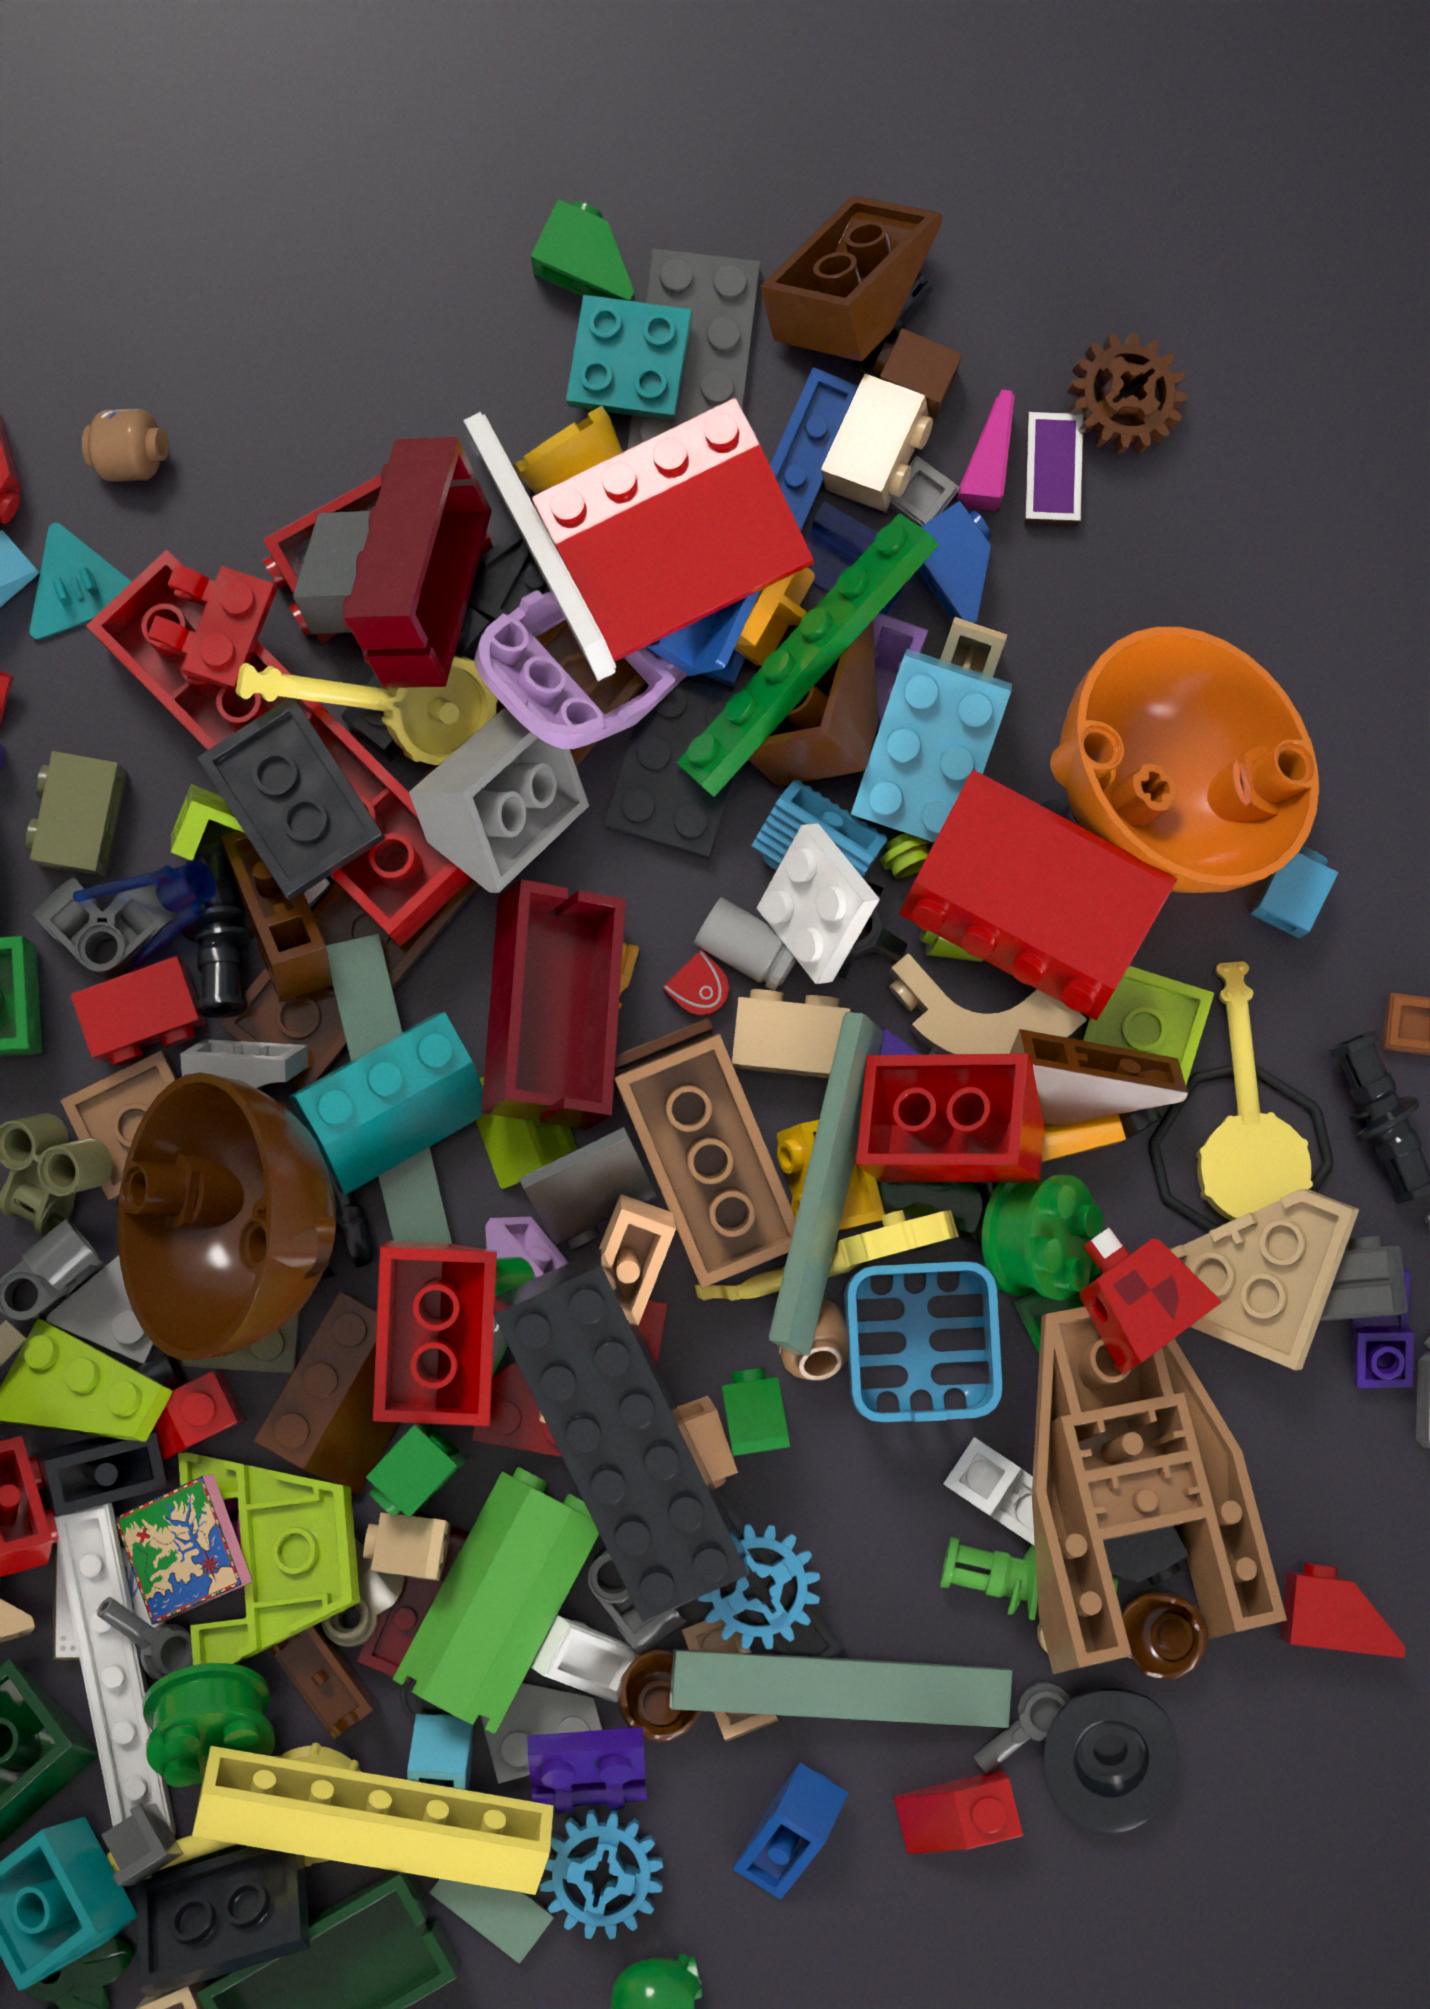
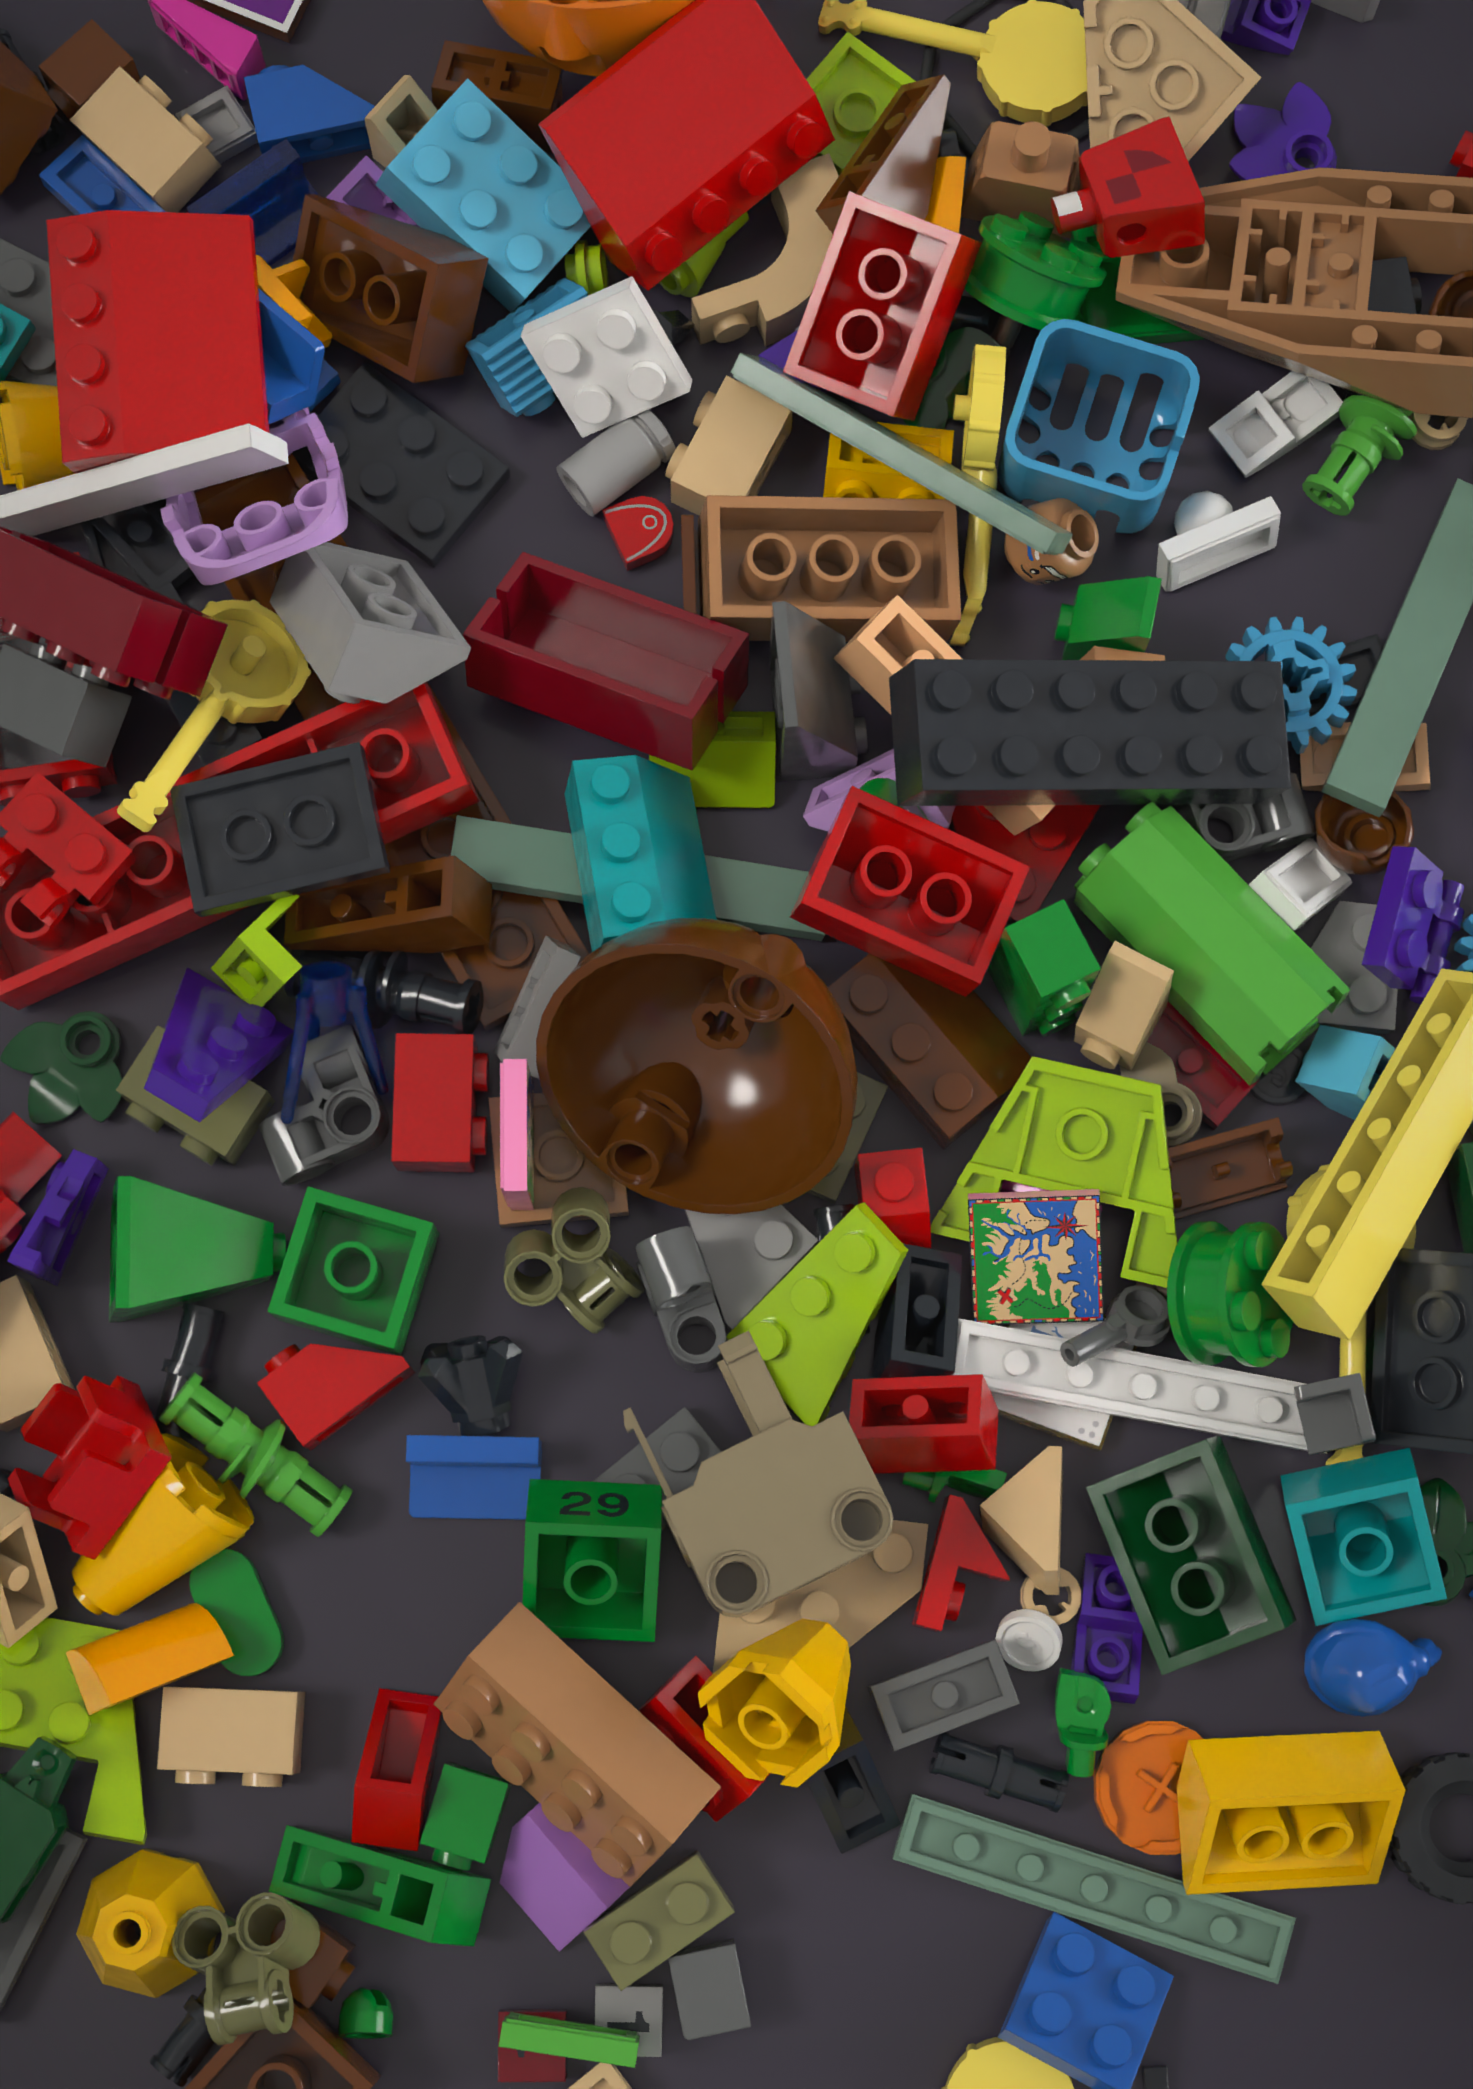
camera: 70 degrees left, 5 degrees down
(63, 704) = (61, 1074): none -> dark green plate
(111, 812) = (212, 1047): none -> dark purple wing
(117, 1088) = (517, 1134): none -> bright pink tile
(807, 653) = (342, 272): green plate -> none
(875, 1475) = (1214, 537): none -> white tile
(1033, 713) = (515, 82): none -> reddish brown hinge
(1134, 1193) = (1020, 171): none -> medium nougat torso
(1273, 1402) = (1278, 138): none -> dark purple plate

